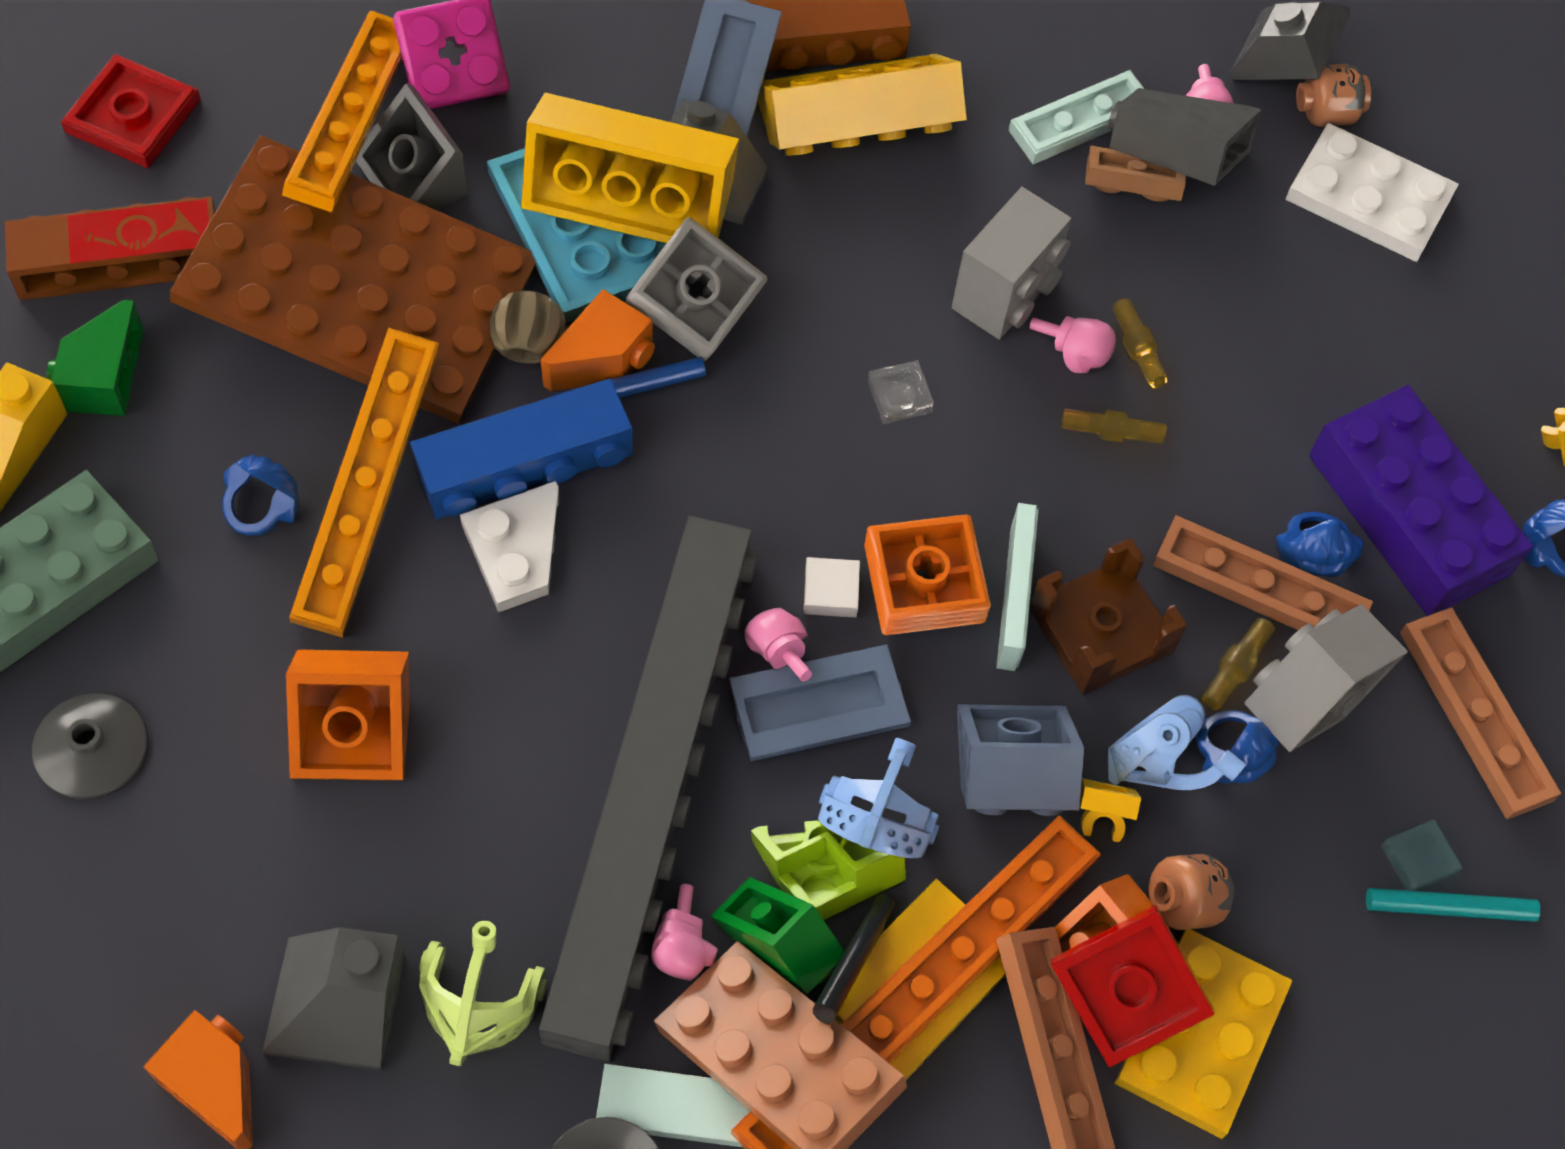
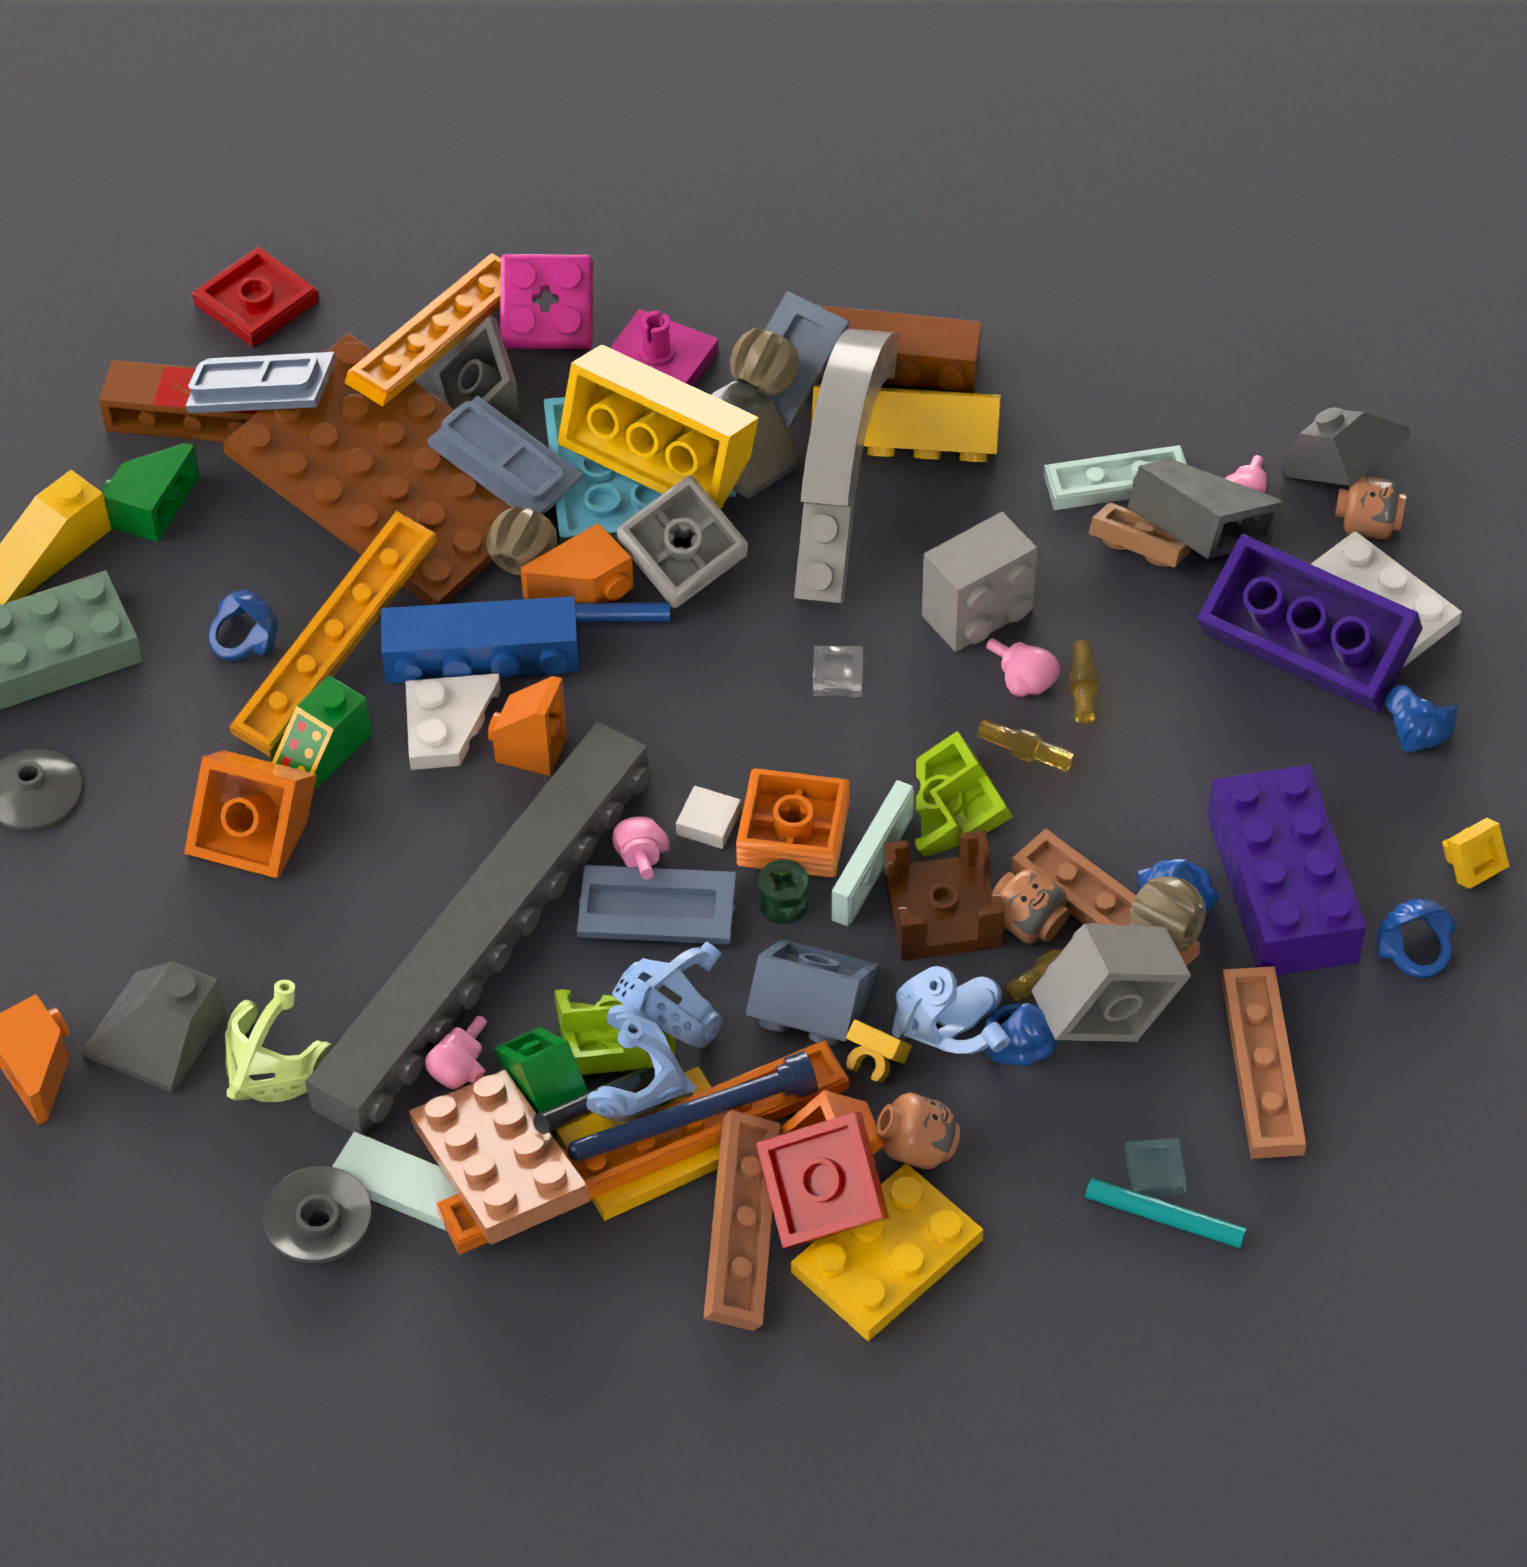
camera: 25 degrees right, 10 degrees down
(185, 214) = (260, 382): none -> sand blue piece
(395, 597) = (324, 730): none -> green slope
(475, 238) = (504, 457): none -> sand blue piece
(583, 75) = (667, 346): none -> dark pink tile
(616, 537) = (531, 728): none -> orange slope
(712, 73) = (764, 361): none -> dark tan piece
(831, 164) = (833, 458): none -> light grey arch
(921, 907) = (669, 1079): none -> light blue helmet
(940, 666) = (792, 900): none -> clear green wheel
(1055, 873) = (791, 1078): none -> dark blue piece
(1072, 500) = (954, 796): none -> lime slope
(1201, 601) = (1032, 905): none -> nougat head
(1344, 232) = (1310, 623): none -> dark purple brick
(1344, 580) = (1173, 905): none -> dark tan piece
(1474, 308) = (1418, 720): none -> blue piece

